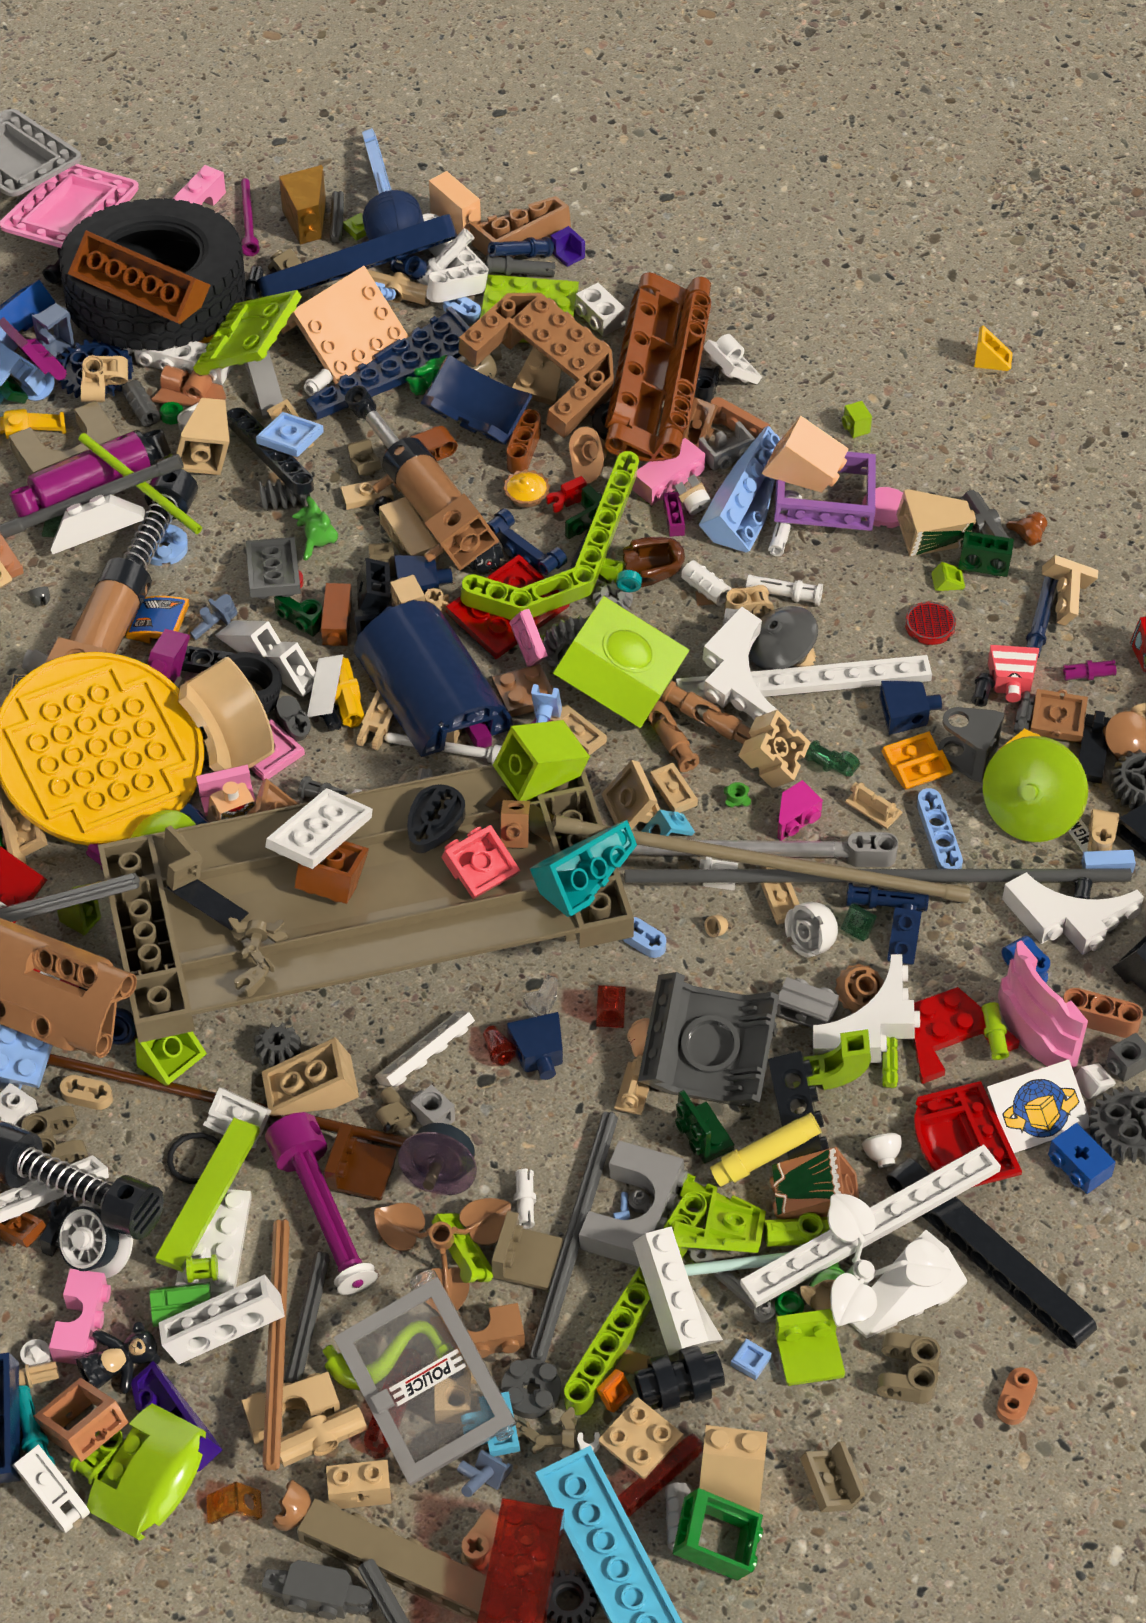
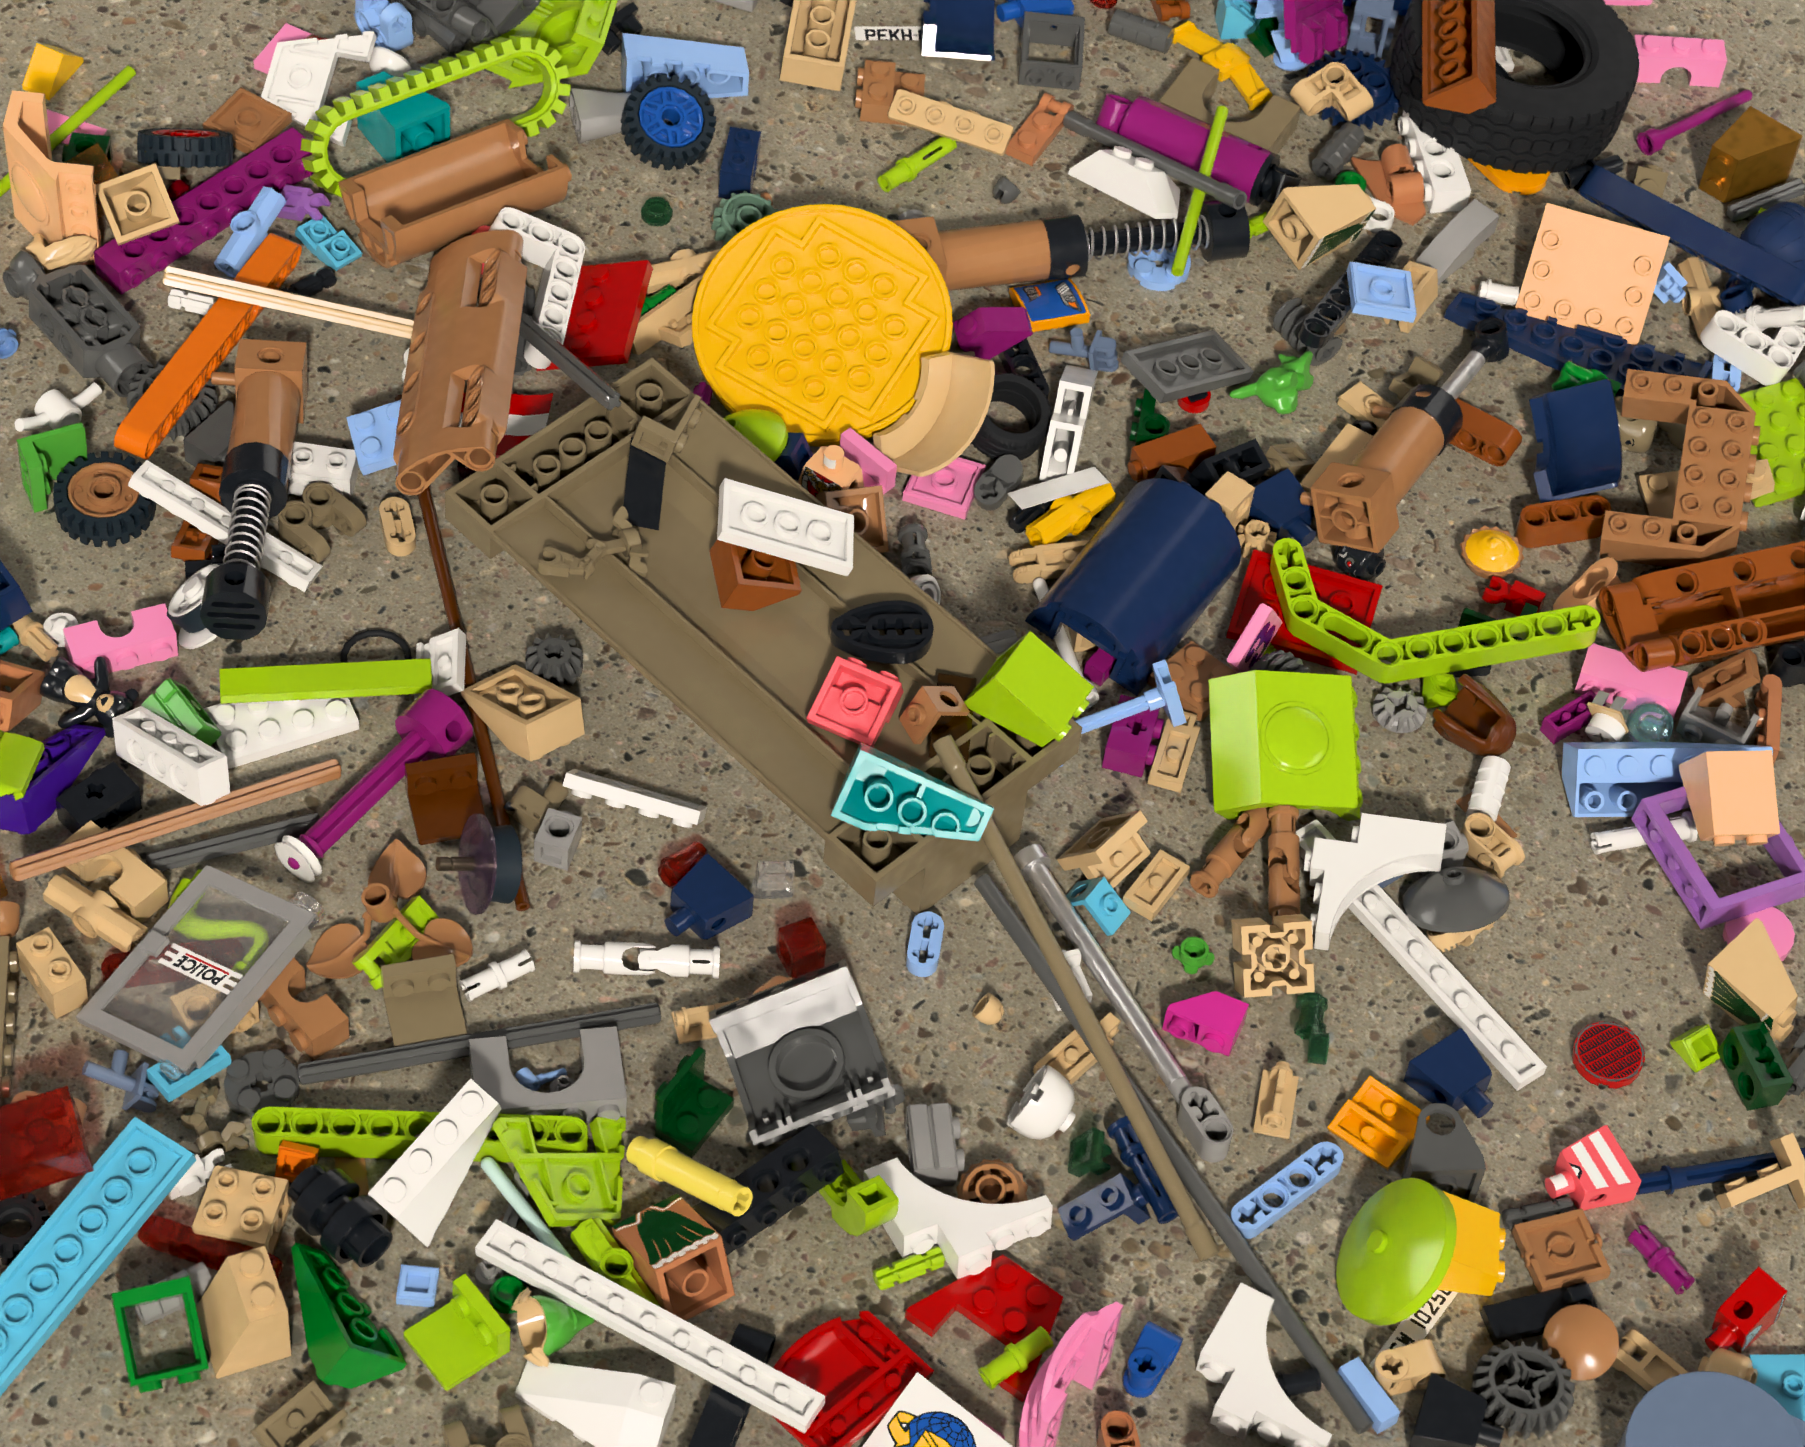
camera: 55 degrees right, 0 degrees up
(168, 1056) = (482, 577): lime slope -> none
(202, 1268) = (228, 714): lime bush -> none
(223, 1408) = (103, 797): none -> black brick
(248, 331) = (1489, 183): lime hinge -> none
(516, 545) = (1388, 612): dark blue plate -> none
(572, 1088) = (673, 960): none -> white piece
(629, 581) = (1421, 707): teal tile -> none
(710, 476) = (1649, 723): none -> clear light blue piece
(786, 1418) = (337, 1326): none -> green wedge
(796, 590) = (1547, 889): white pin -> none
(850, 1295) = (528, 1342): white plant -> none
(883, 1148) = (775, 1305): white brick -> none
(984, 684) = (1542, 1150): black pin -> none

